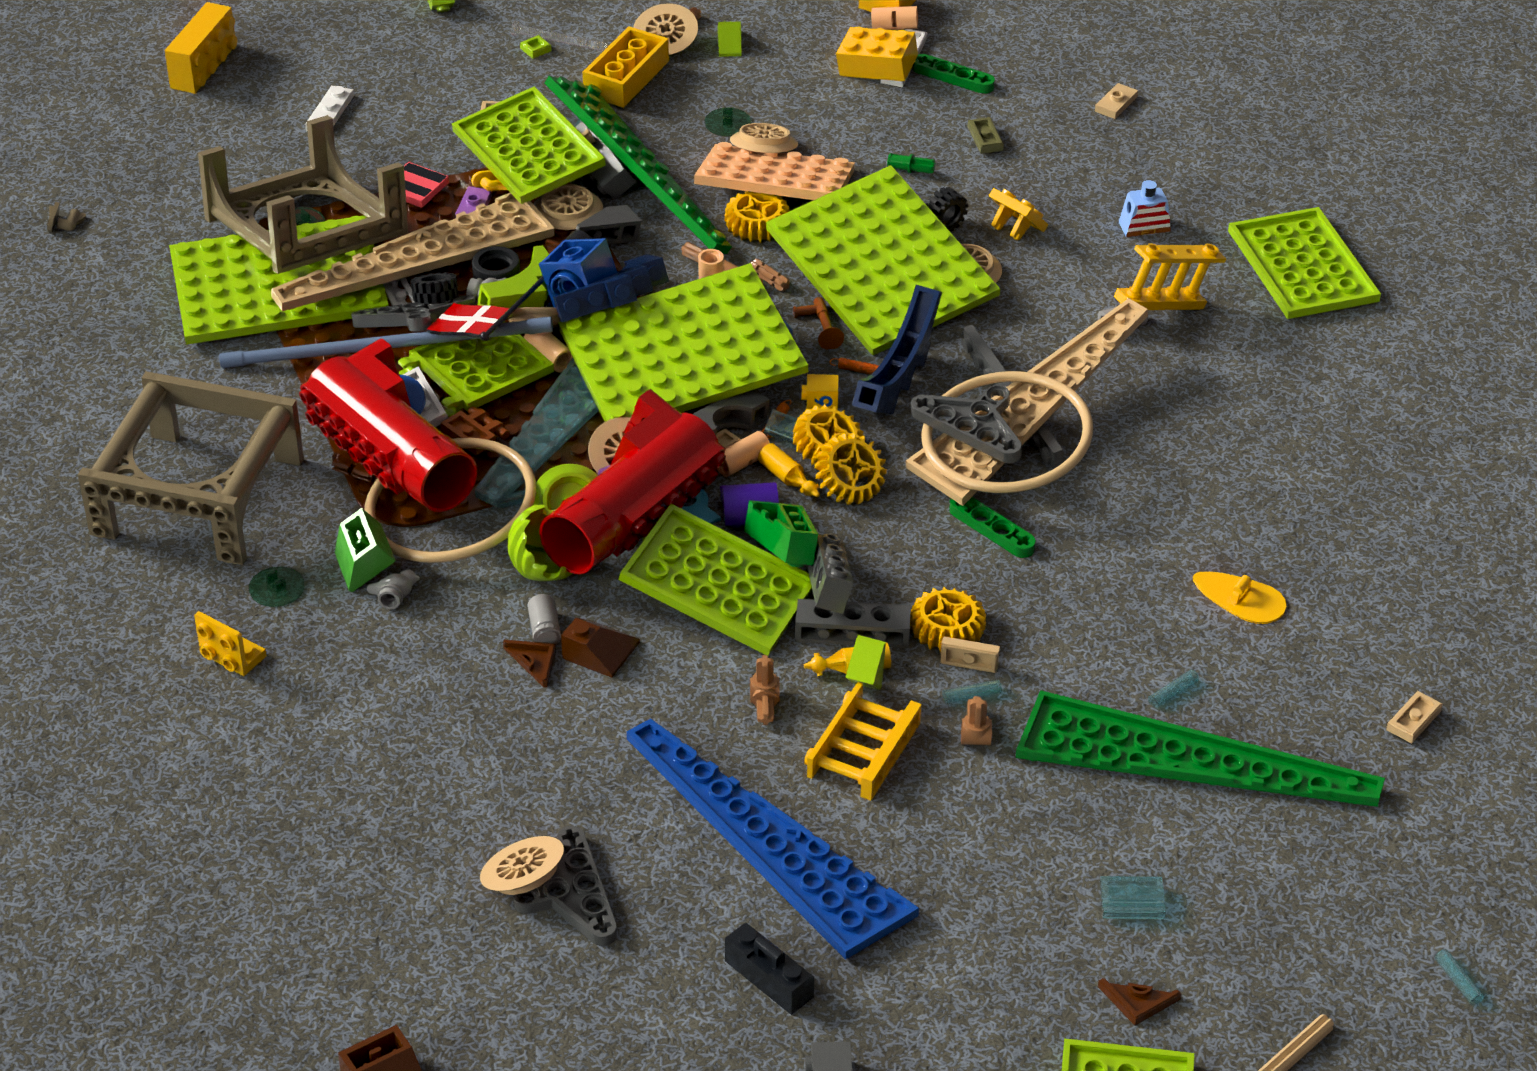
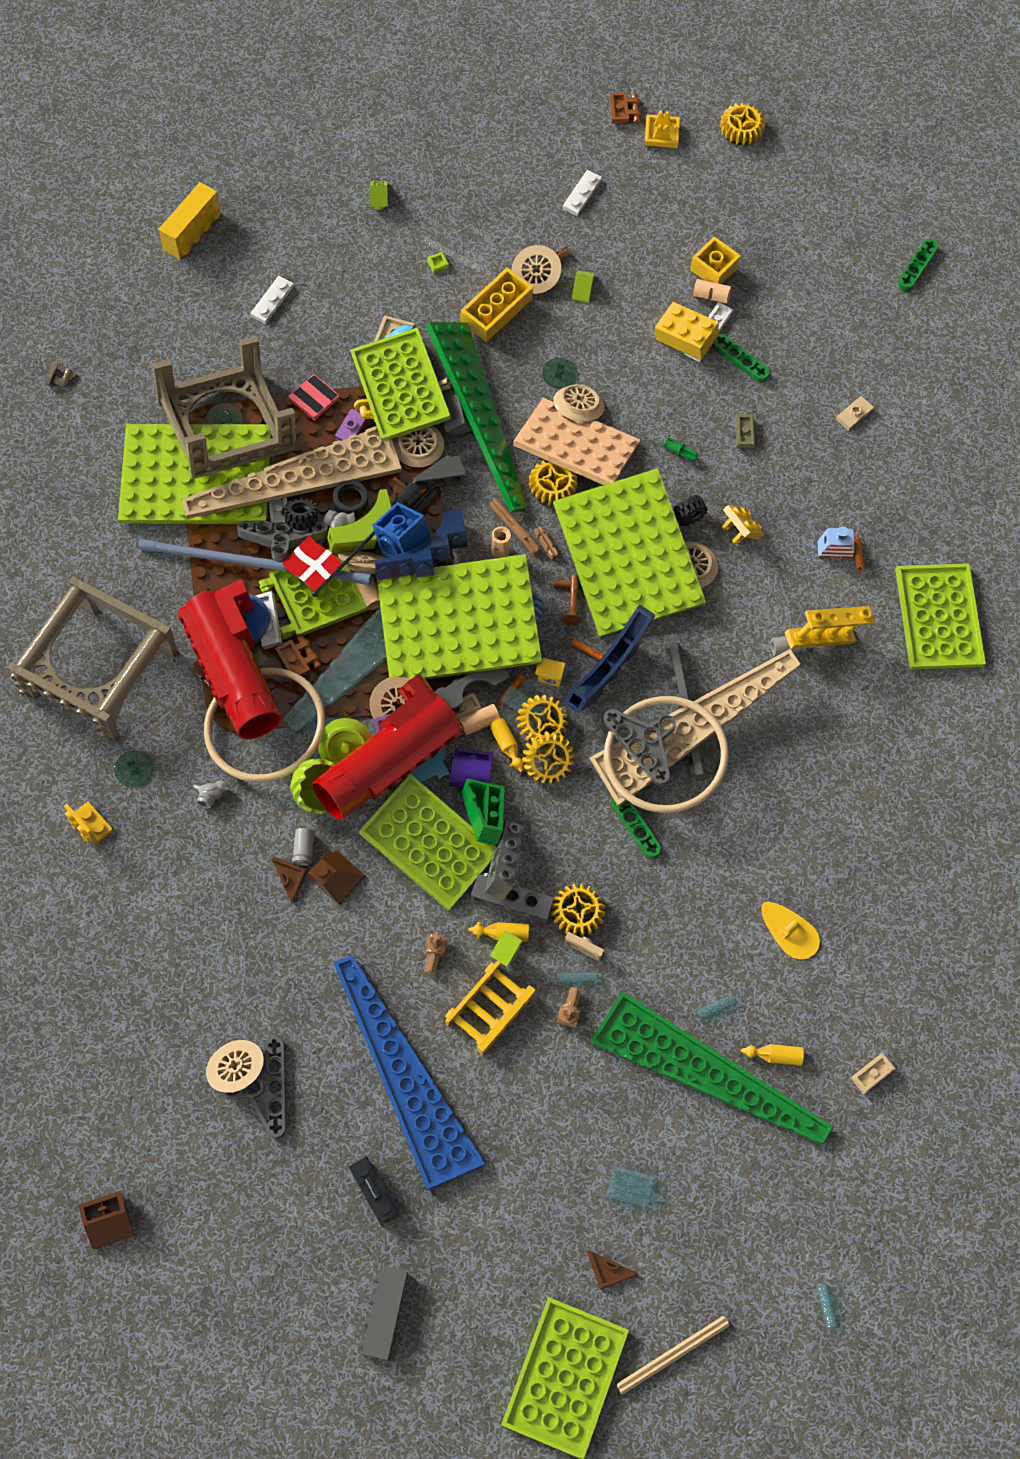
camera: 10 degrees right, 25 degrees up
(362, 549) = (195, 758): bright green slope -> none
(1177, 226) = (858, 553): none -> orange piece
(1277, 719) = (777, 1054): none -> yellow wheel

